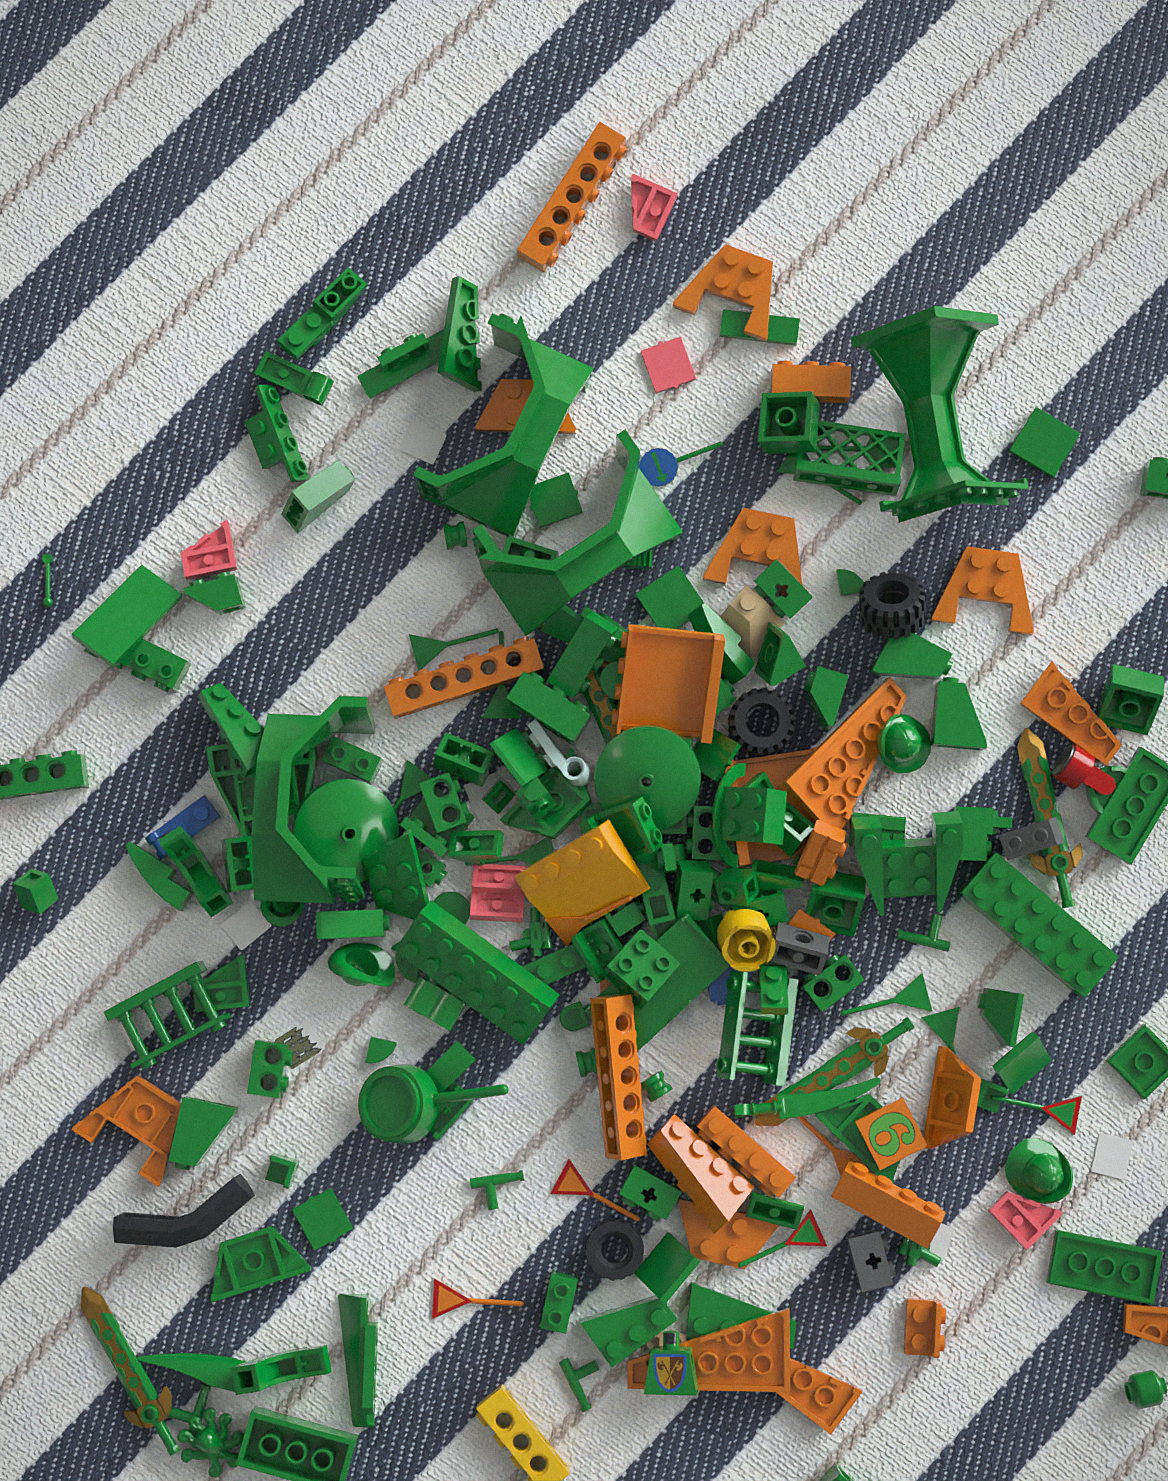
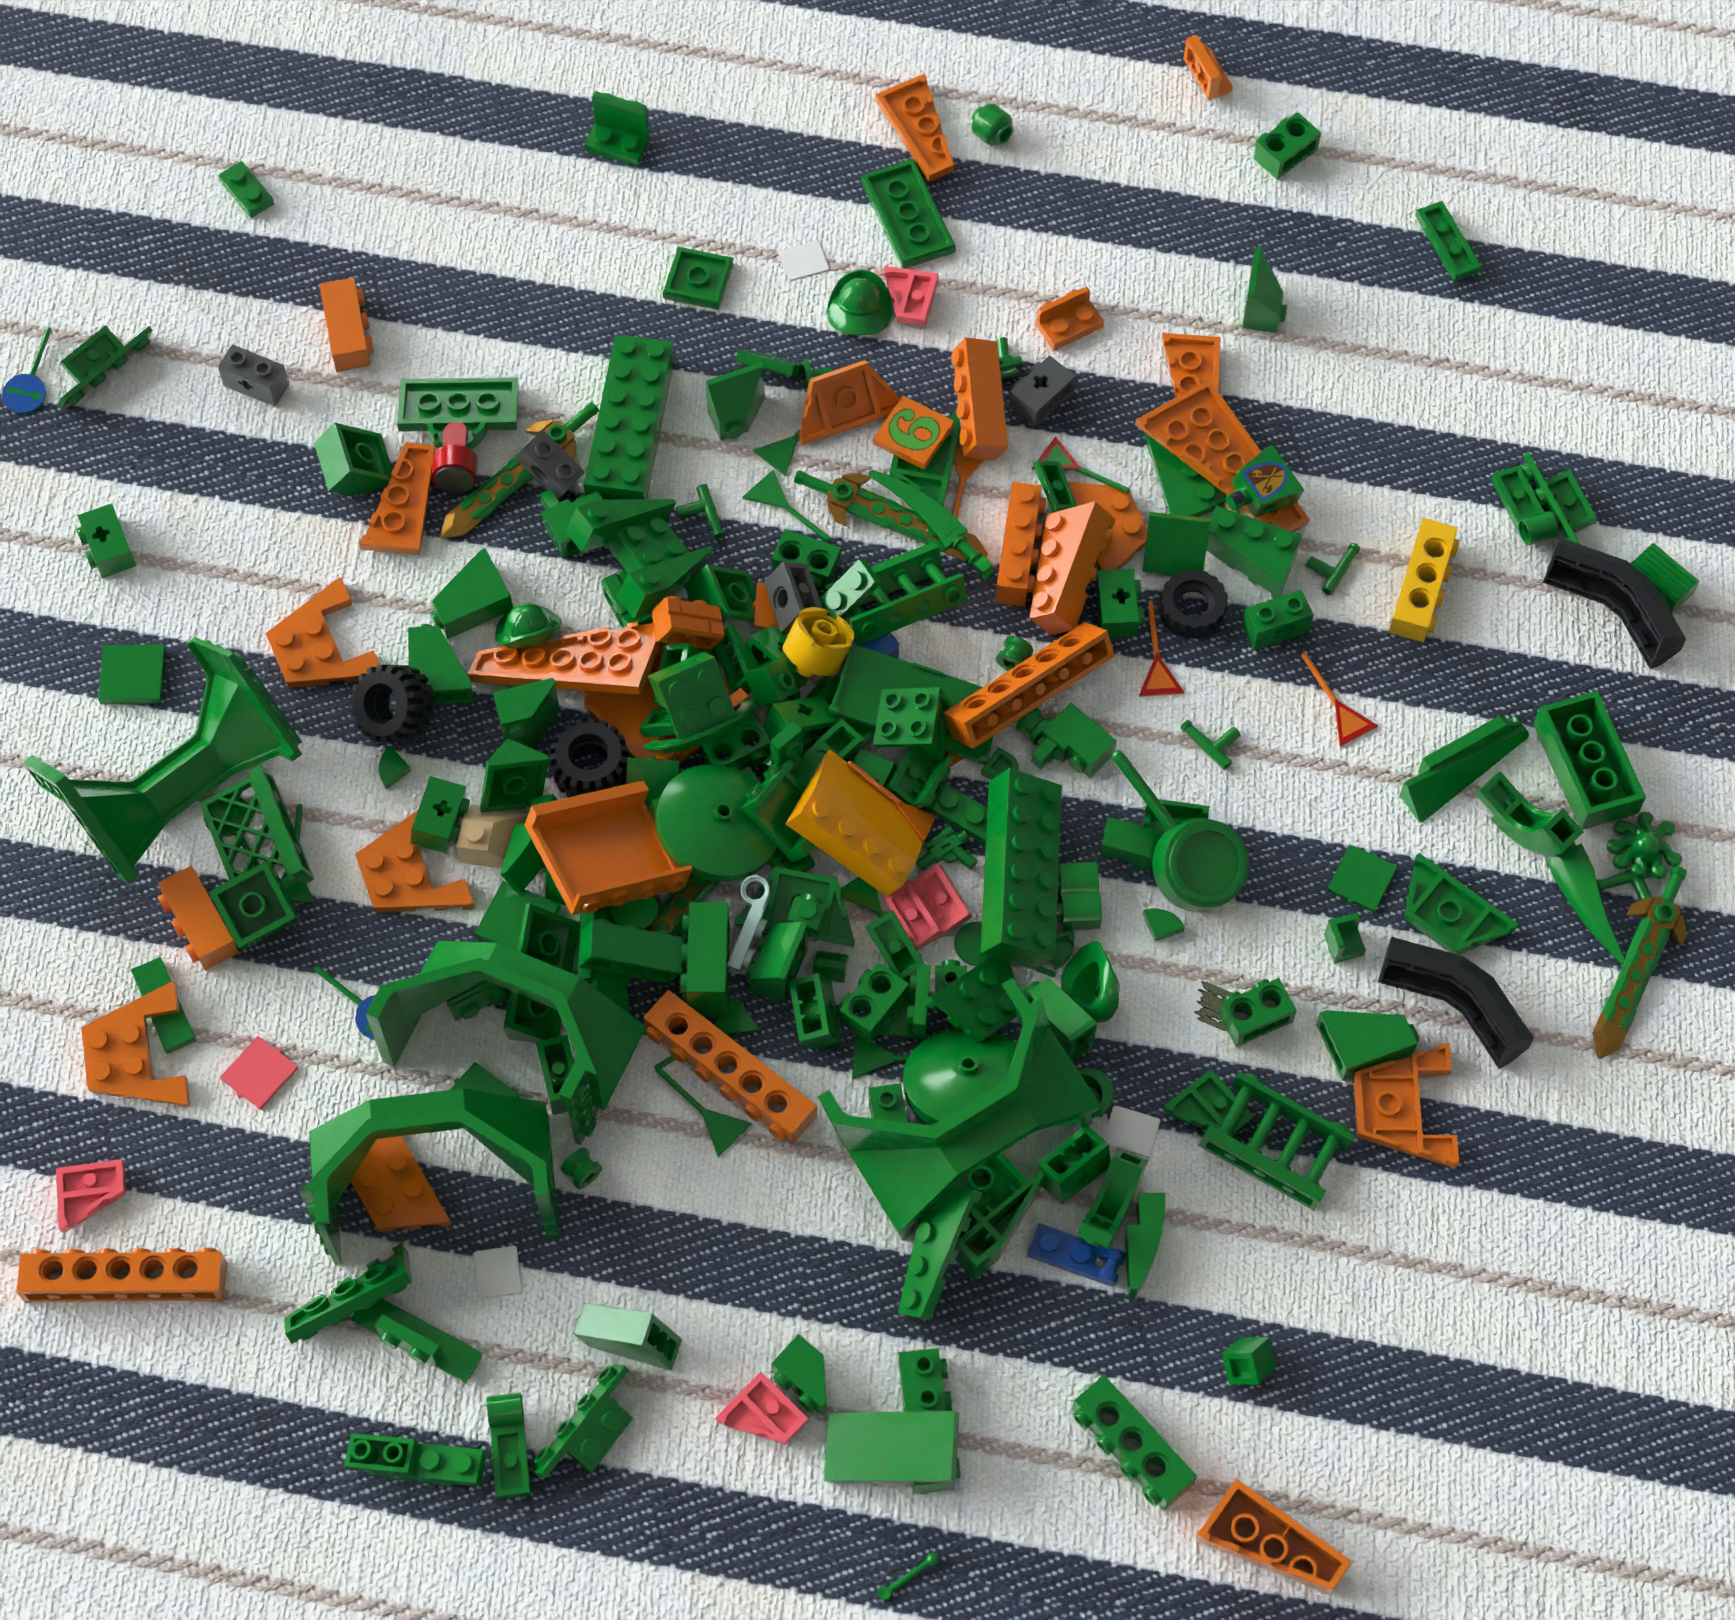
camera: 125 degrees left, 20 degrees down
(560, 1084) = (1074, 738): none -> green hinge
(625, 599) = (553, 941): none -> green slope
(1064, 1112) = (792, 317): green piece -> none

